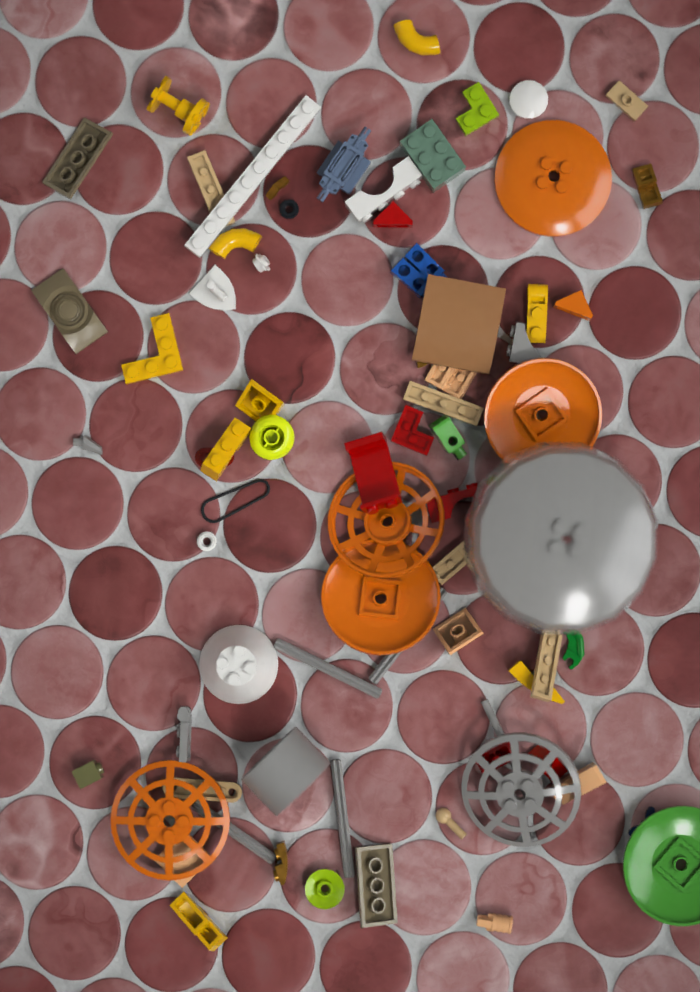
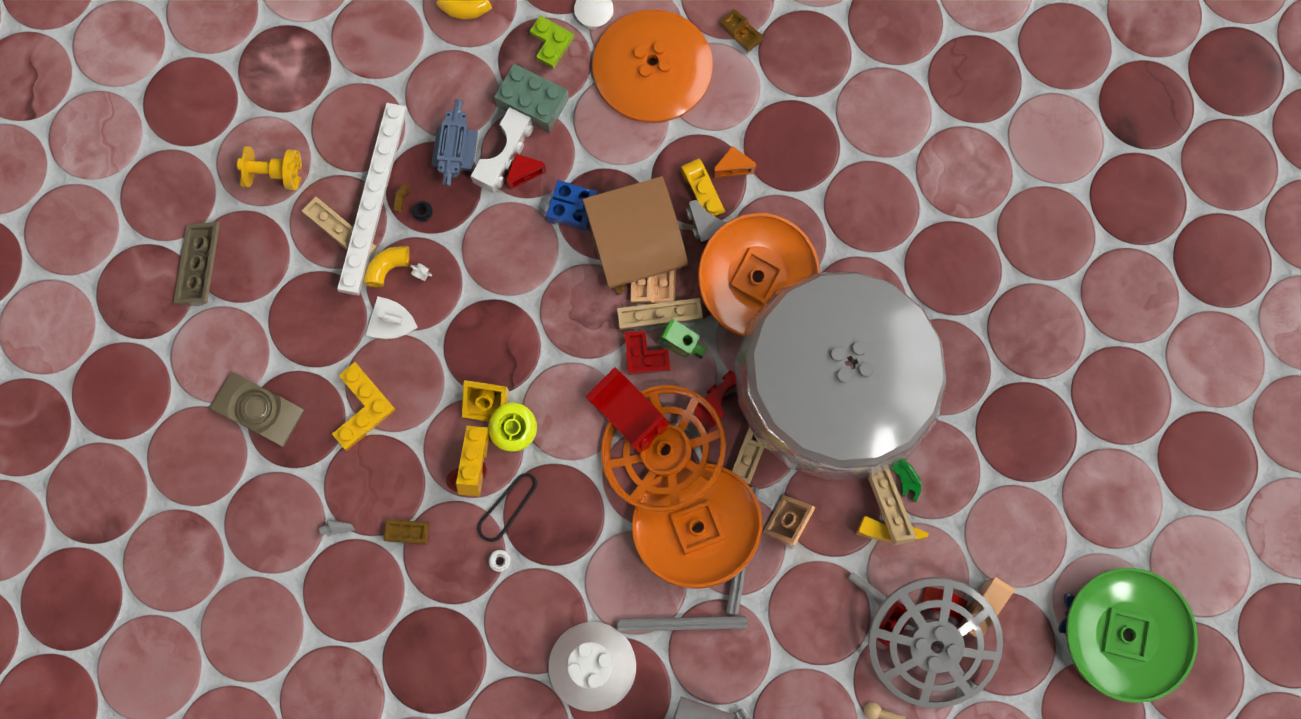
camera: 30 degrees left, 10 degrees down
(143, 478) = (406, 531): none -> pearl gold plate

